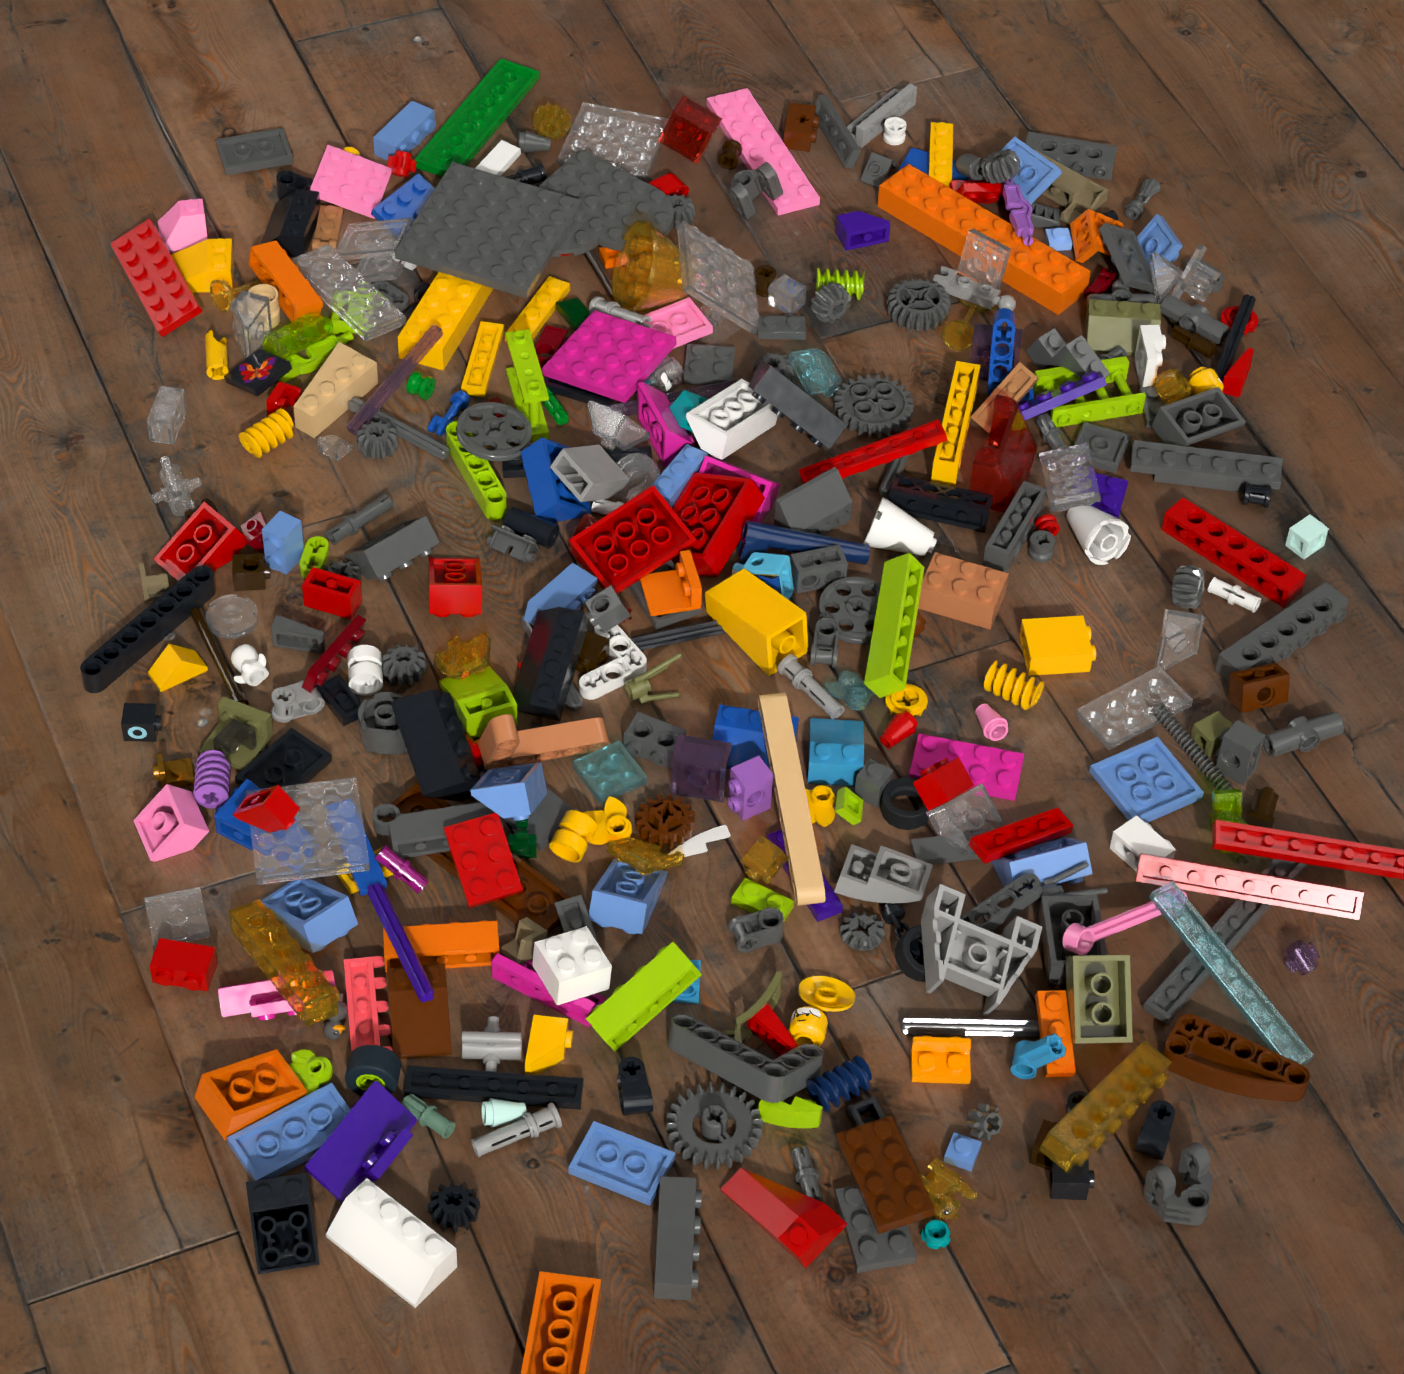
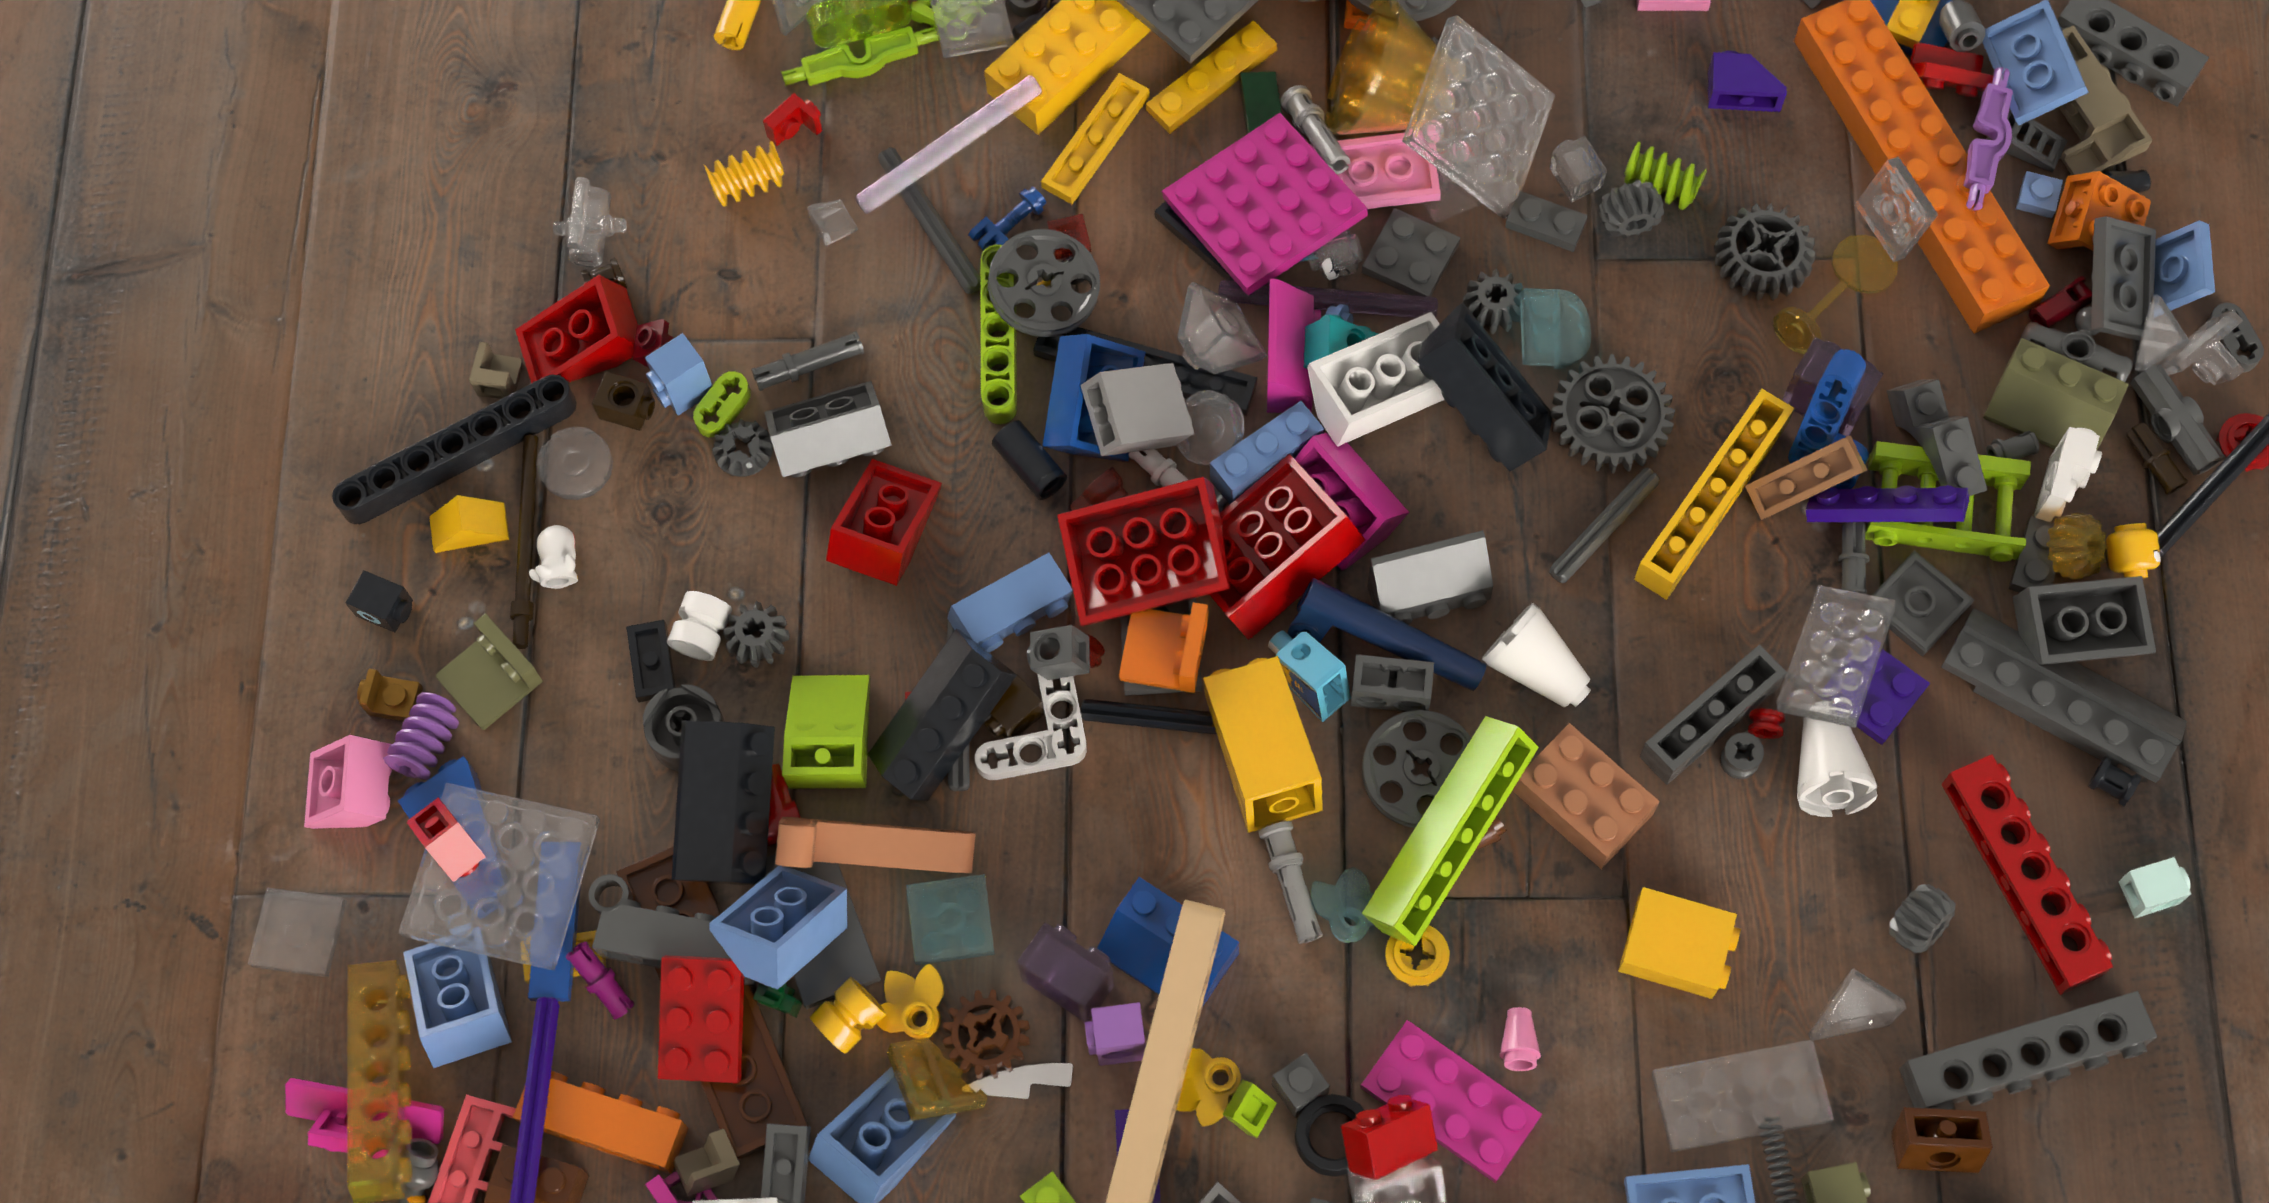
camera: 30 degrees right, 20 degrees up
(166, 415) = (628, 95): clear brick -> none
(183, 964) = (267, 1019): red brick -> none
(233, 736) = (473, 680): clear smoke bracket -> none
(258, 372) = (780, 61): black tile -> none
(286, 762) = (529, 745): black plate -> none
(296, 636) = (630, 527): dark grey slope -> none
(296, 701) = (596, 640): light grey piece -> none
(332, 593) = (710, 481): red brick -> none
(332, 656) = (656, 597): dark red plate -> none
(338, 380) = (881, 114): tan wedge -> none
(377, 440) = (874, 231): dark grey gear -> none
(421, 385) = (988, 158): green wheel -> none
(464, 658) = (839, 653): clear yellow slope -> none
(522, 546) = (1005, 487): dark grey hinge -> none
(527, 381) = (1124, 217): lime fence -> none
(550, 342) = (1204, 138): dark red piece -> none
(555, 409) = (1157, 254): green axle -> none
(639, 686) = (1055, 788): olive plant -> none
(652, 739) = (1040, 886): dark grey brick -> none
(763, 860) = (1085, 1158): clear yellow brick -> none
(765, 276) = (1560, 122): dark brown bush -> none
(825, 643) = (1340, 822): dark grey piece -> none
(835, 751) = (1278, 1000): dark azure slope -> none
(879, 452) = (1562, 513): red plate -> none
(899, 728) = (1381, 1002): red cone -> none
(938, 505) = (1623, 635): black fence -> none
(972, 291) = (1857, 251): light grey plate -> none
(1000, 166) = (1997, 50): dark grey gear -> none
(1005, 468) = (1732, 622): clear red windscreen -> none
(1012, 687) = (1579, 993): yellow piece -> none
(1135, 208) = (2225, 147): dark grey piece -> none
(1235, 596) = (1992, 948): white pin -> none
(1237, 374) = (2190, 551): red slope -> none

